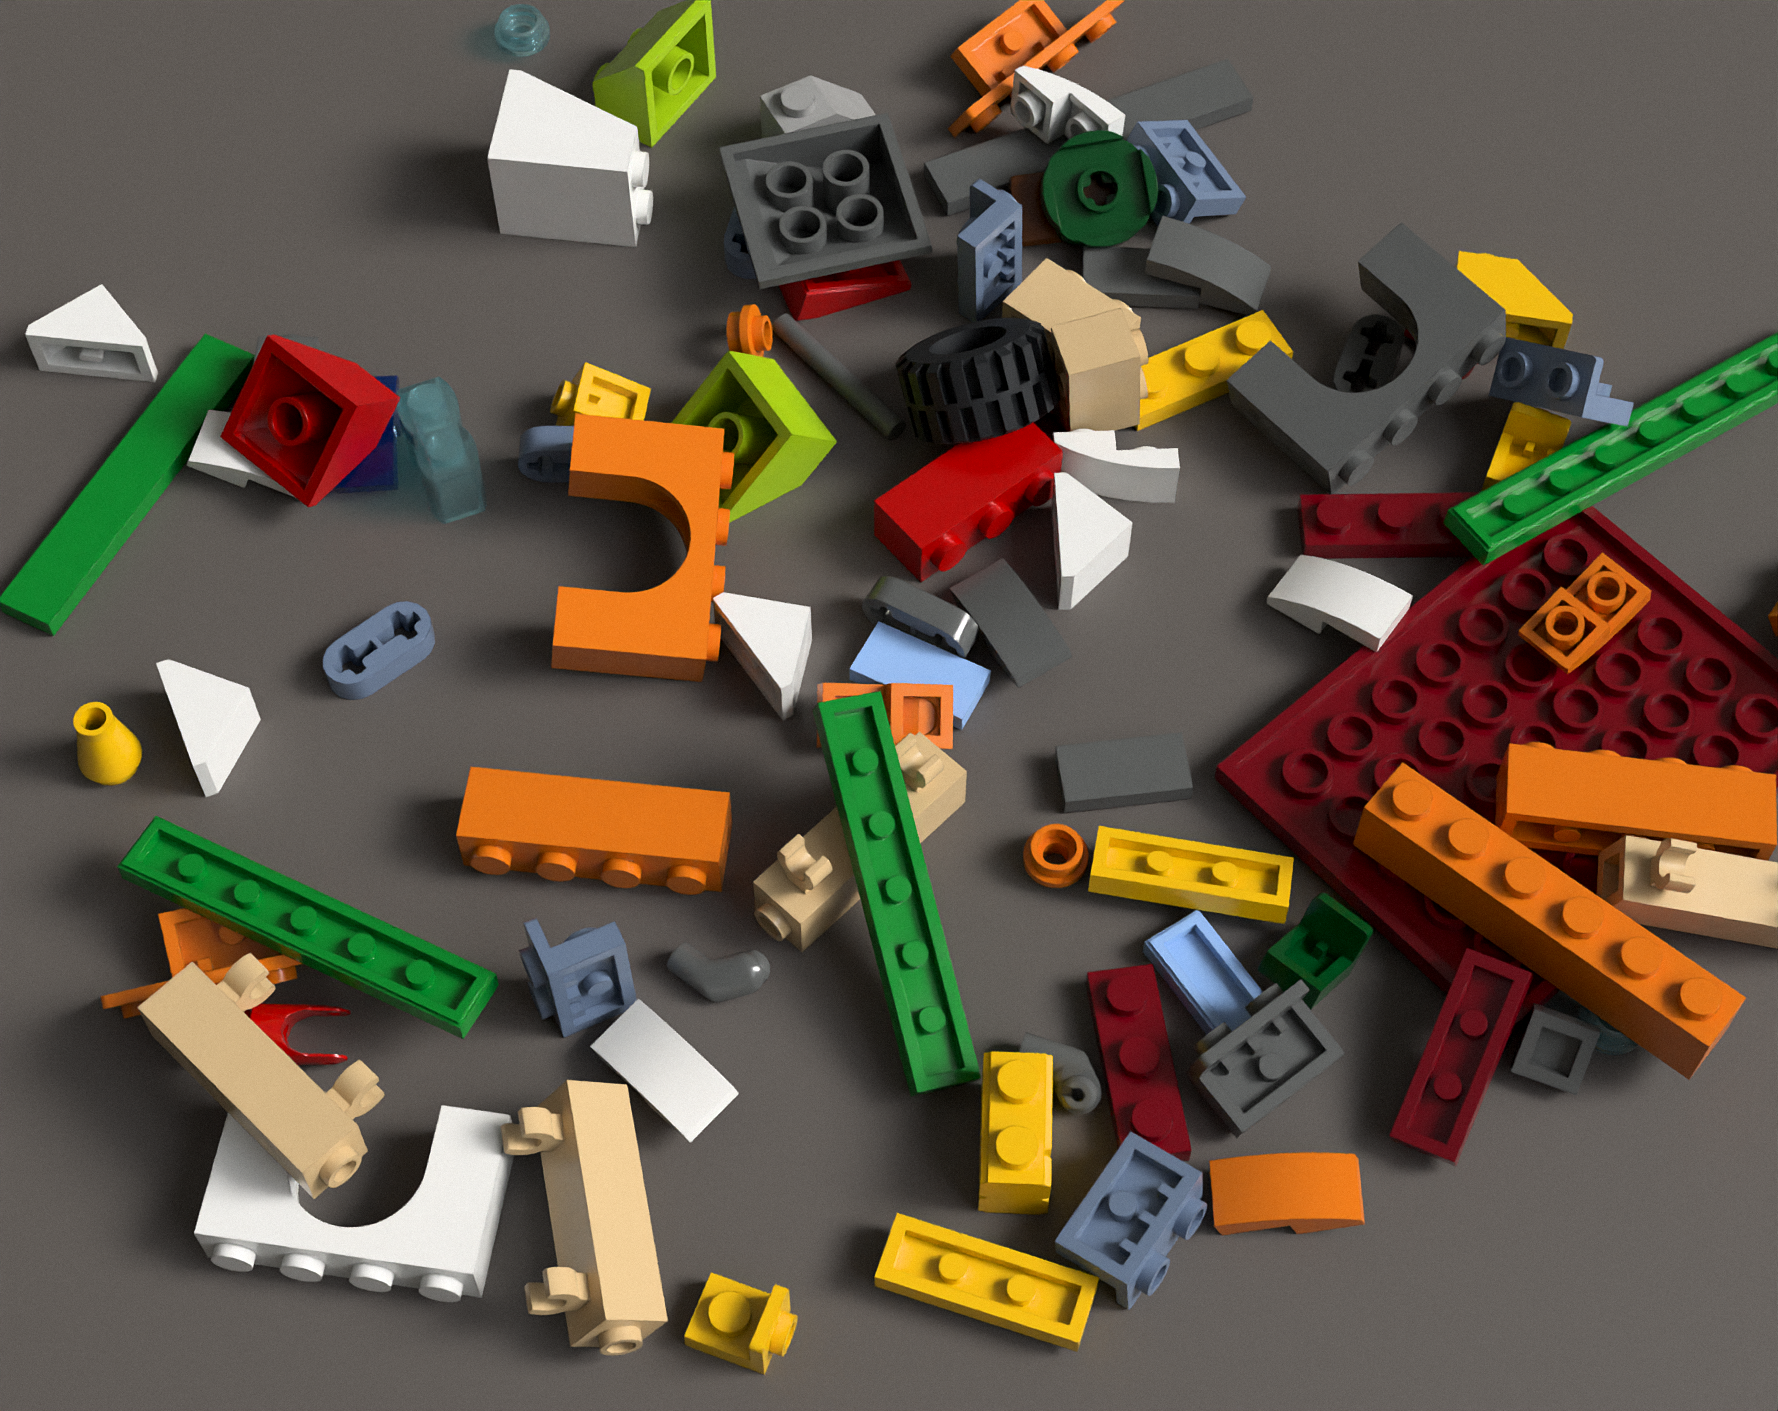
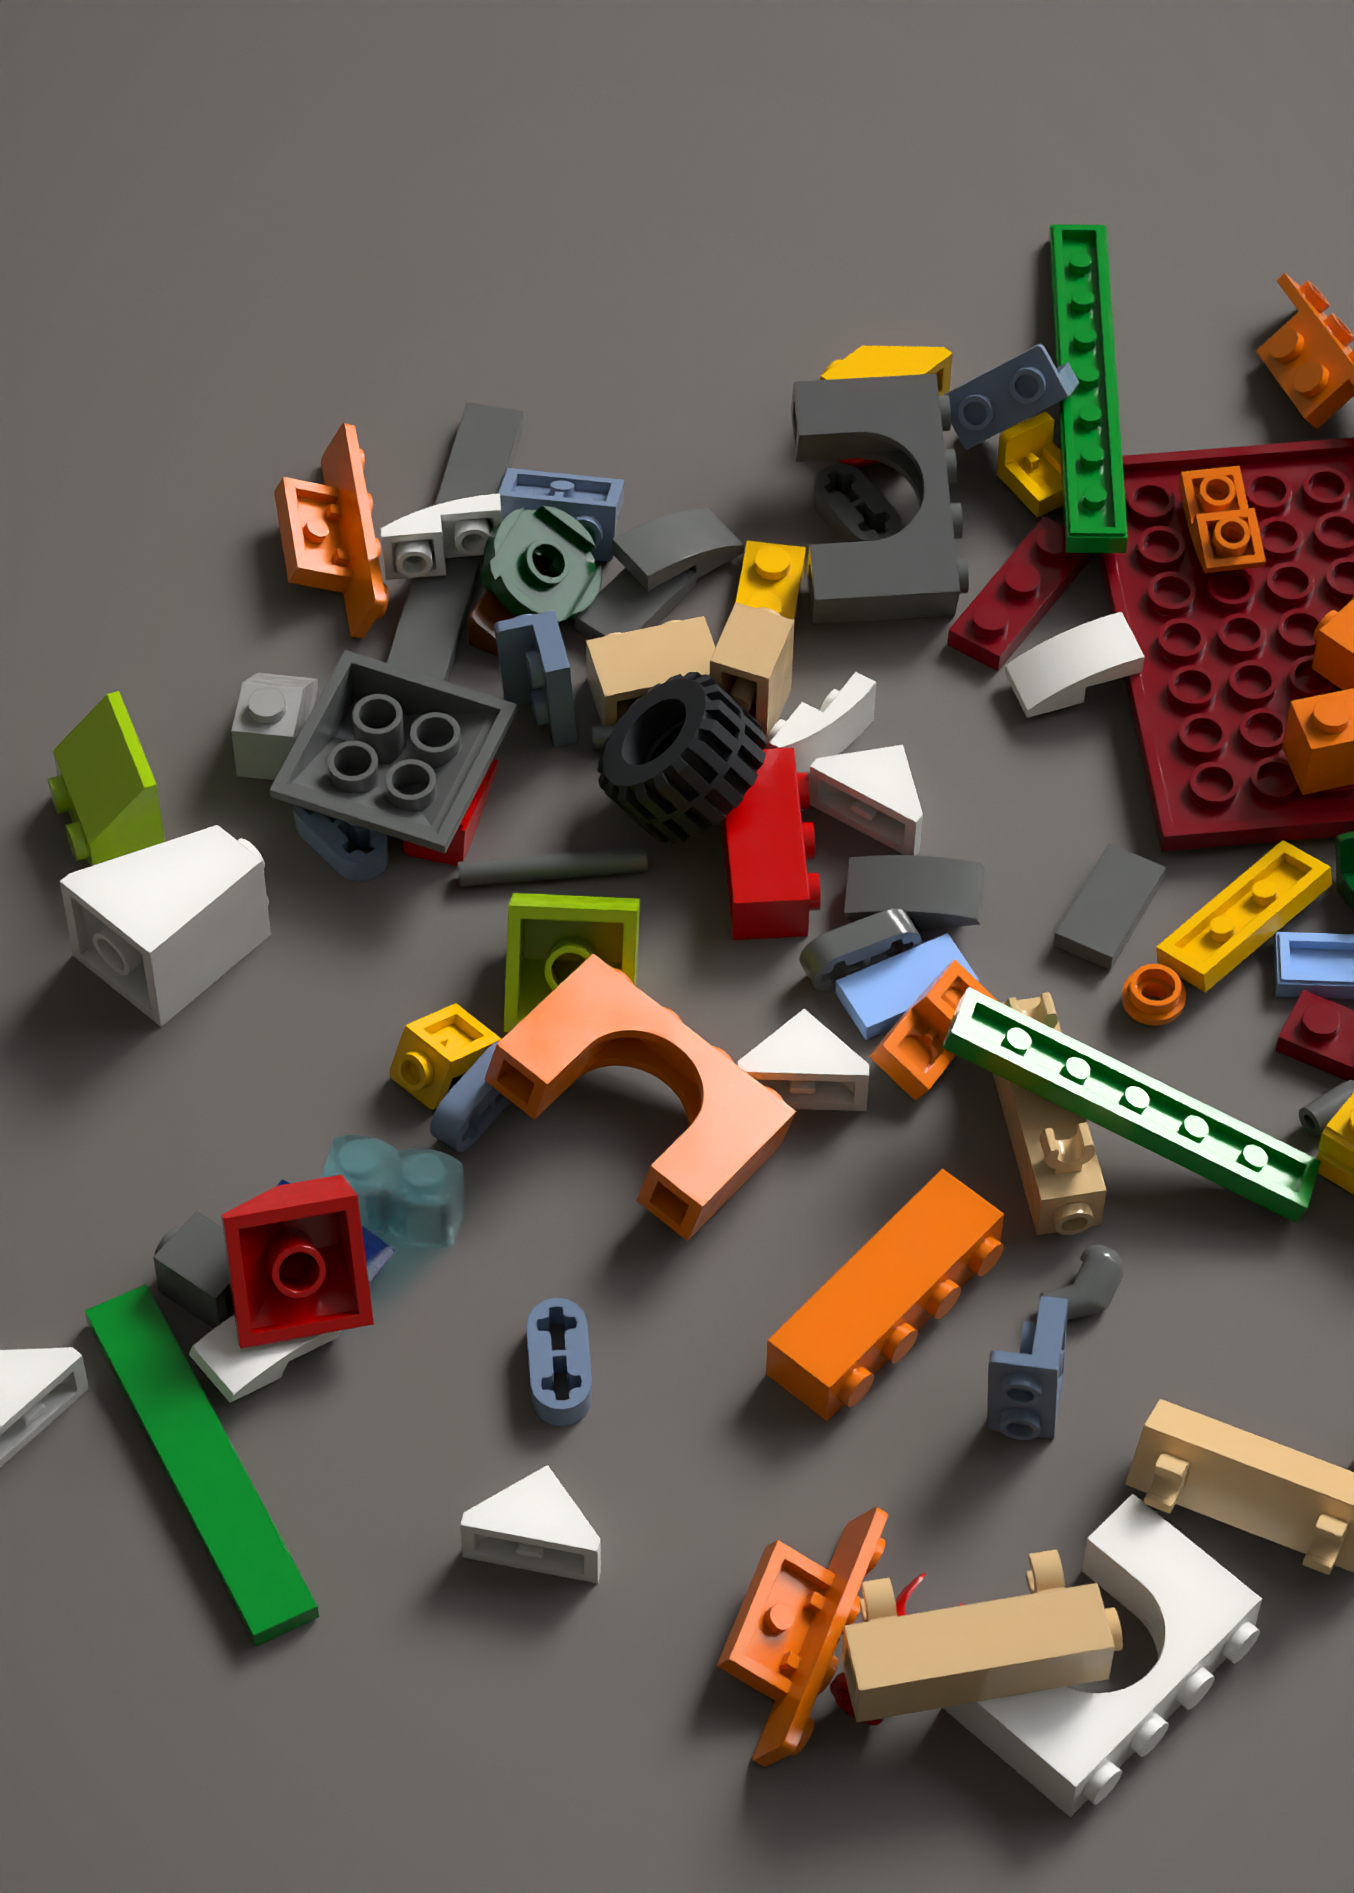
camera: 55 degrees left, 5 degrees down
(105, 746) = (499, 1623): yellow cone -> none
(309, 927) = (836, 1545): green tile -> none
(664, 1070) = (1139, 1371): white slope -> none
(749, 331) = (460, 899): orange plate -> none

